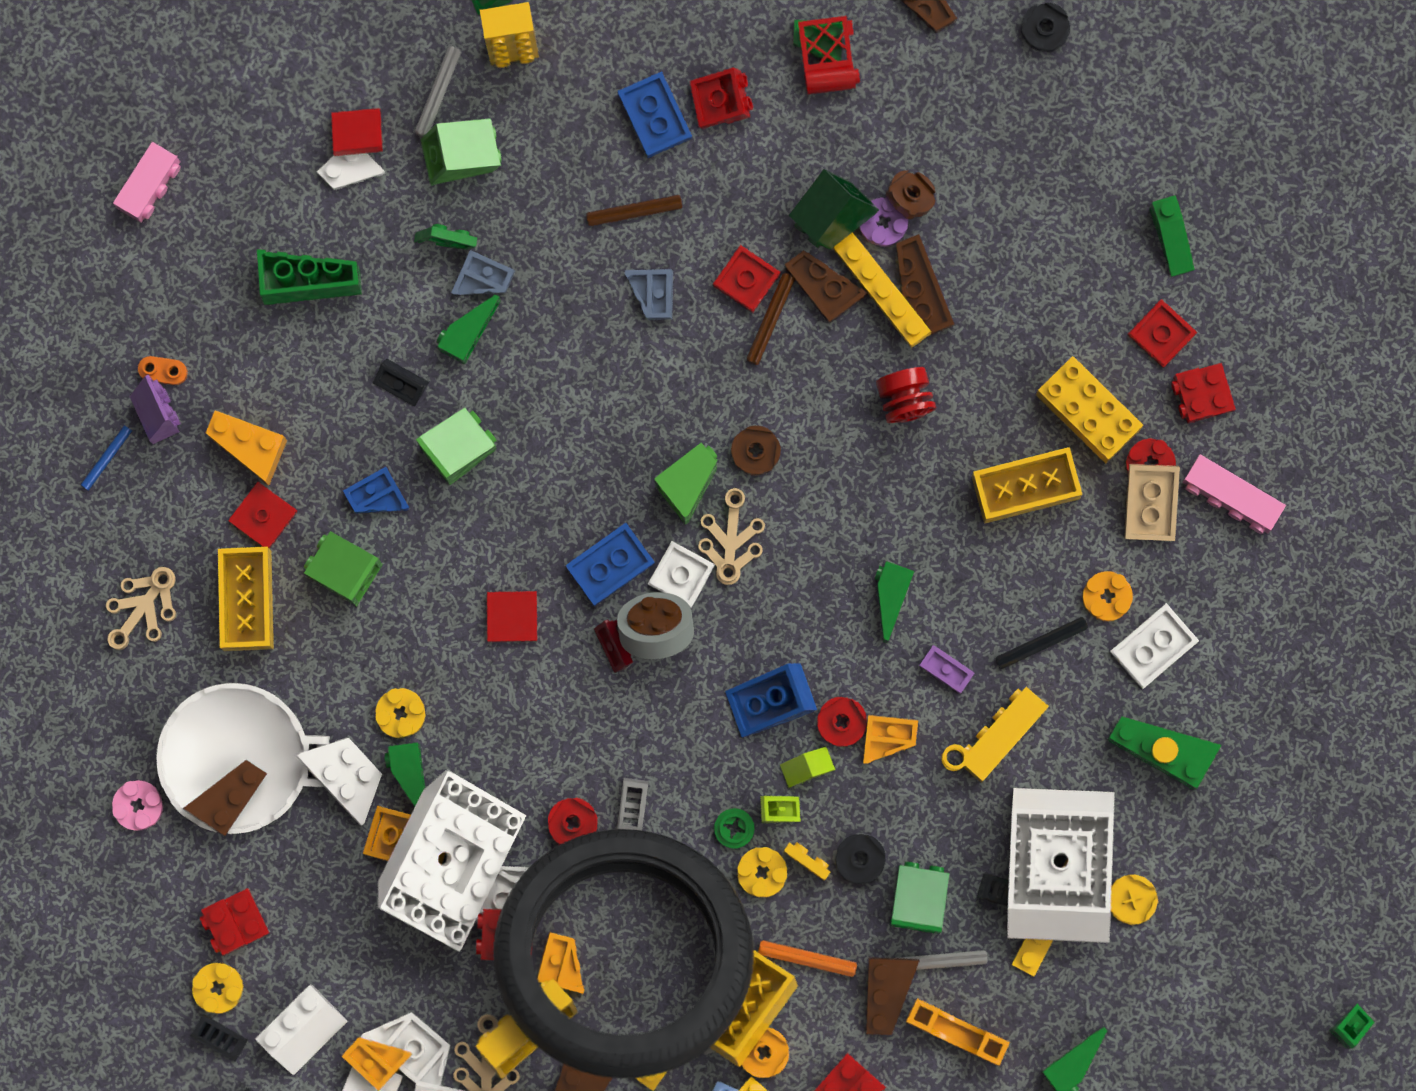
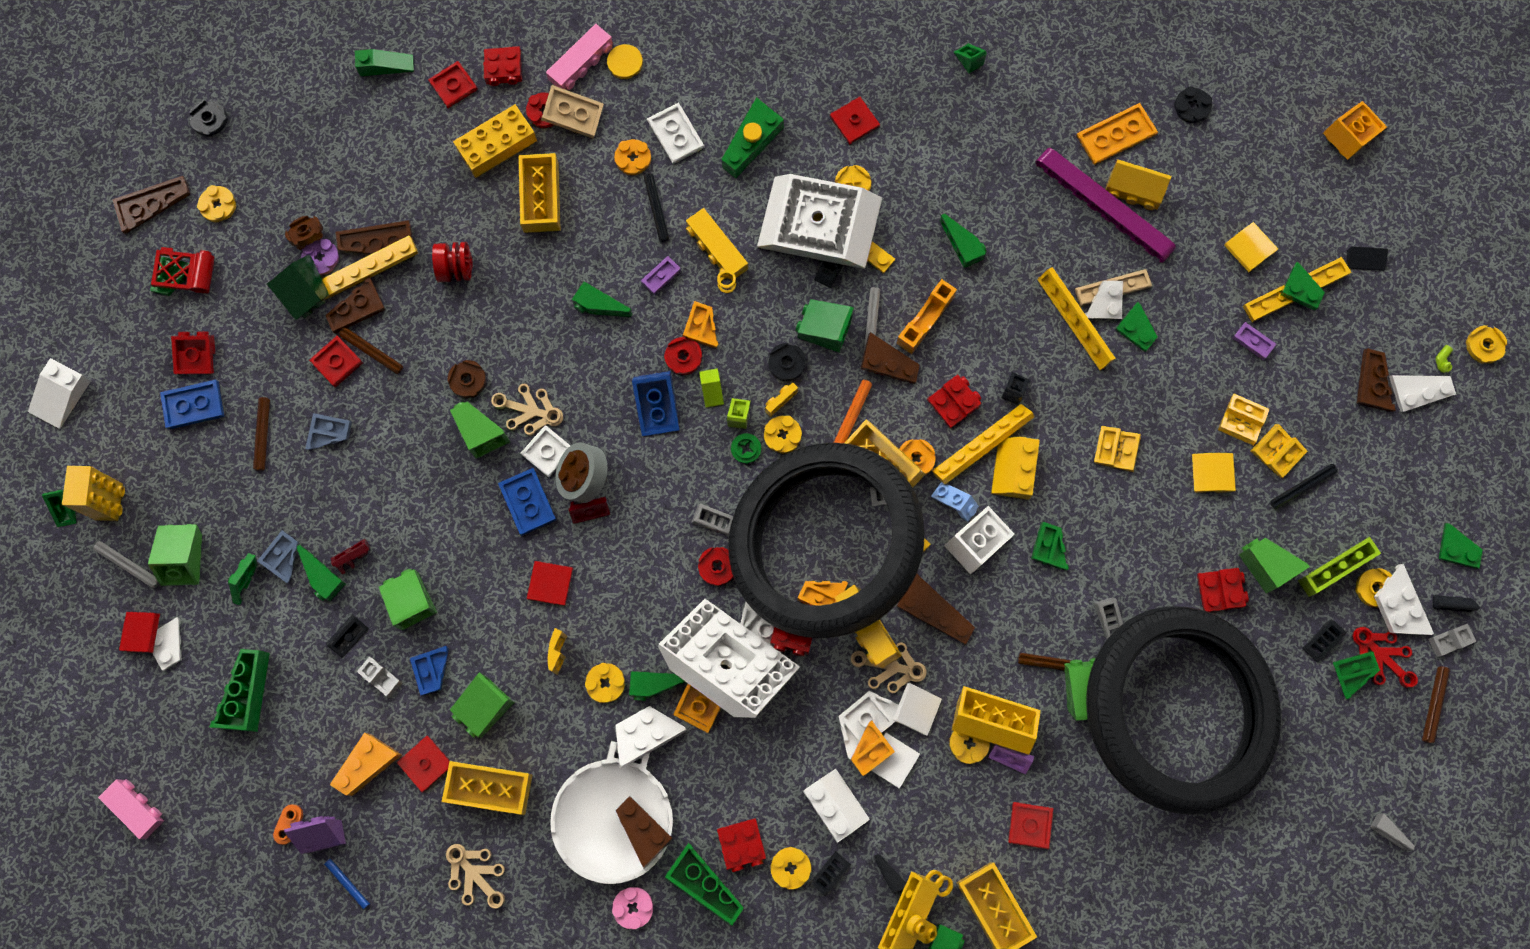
camera: 80 degrees left, 5 degrees down
(178, 882) = (701, 884): none -> green wedge
(357, 434) = (379, 677): none -> light grey slope
(418, 644) = (555, 658): none -> yellow slope
(499, 359) = (357, 550): none -> dark red plate
(936, 82) = (211, 195): none -> yellow plate
(1224, 885) = (854, 120): none -> red plate
(1244, 555) = (624, 61): none -> yellow tile

